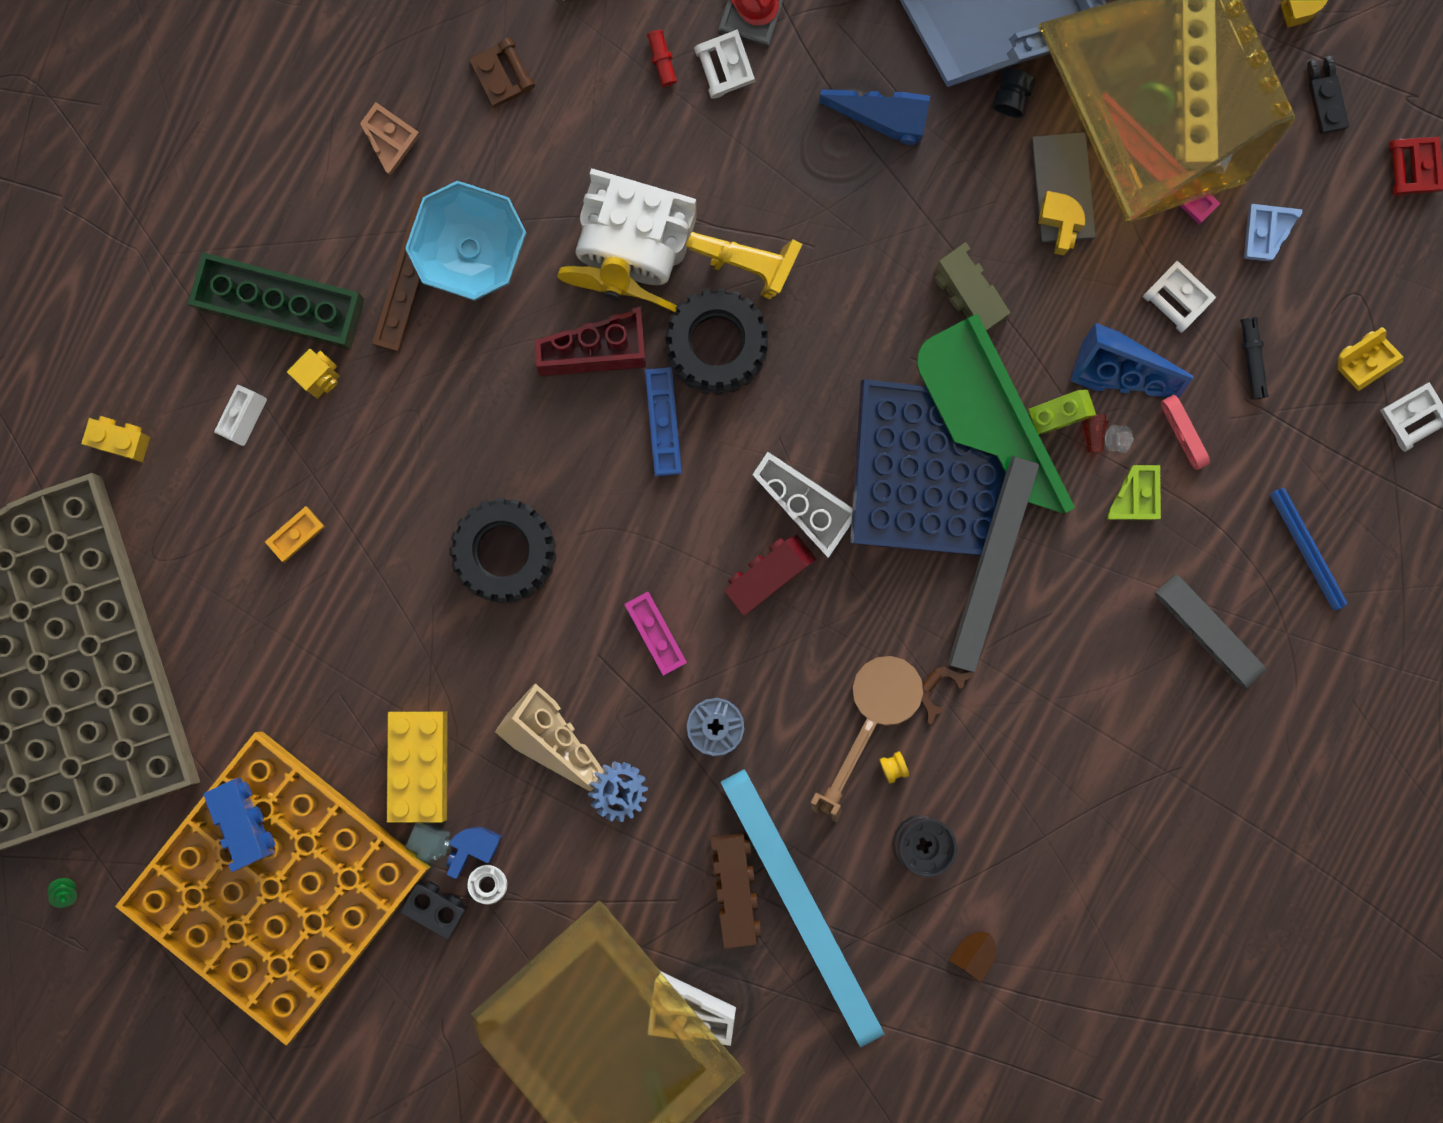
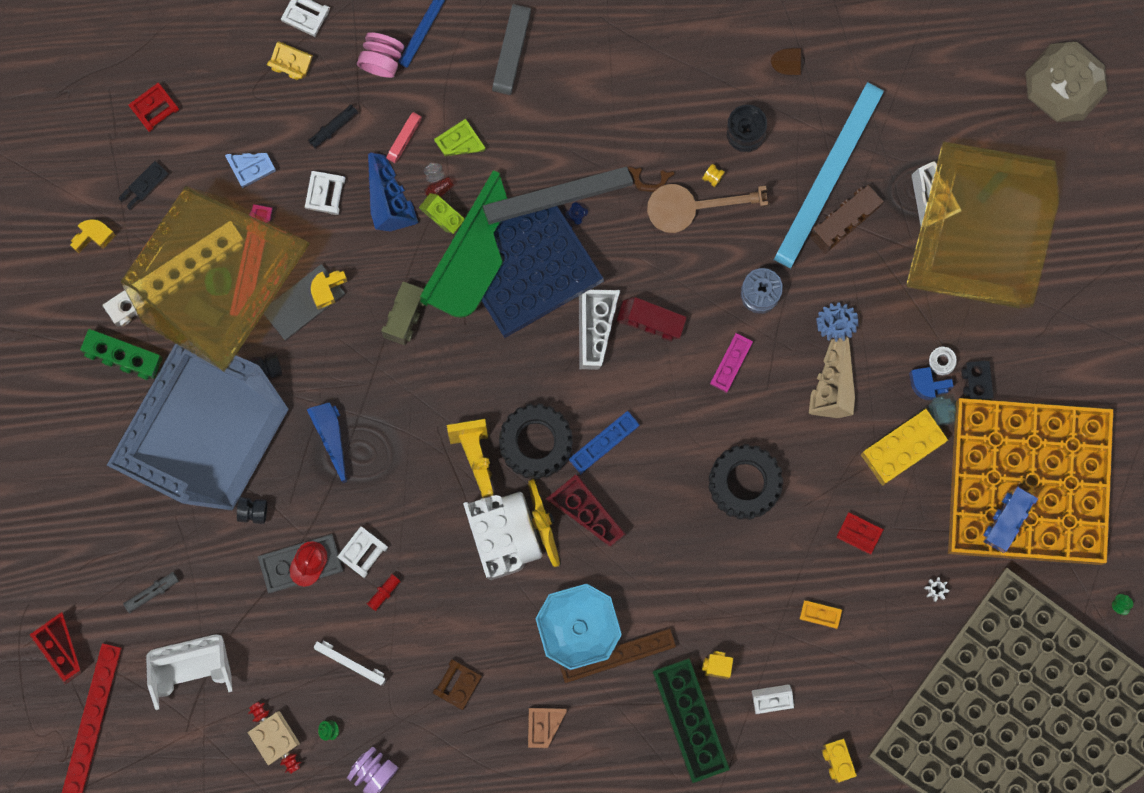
camera: 130 degrees left, 5 degrees down
(237, 687) = (940, 586): none -> white gear
(355, 644) = (859, 533): none -> red plate
(964, 578) = (575, 207): none -> clear blue plate
(1307, 468) = (380, 55): none -> bright pink wheel

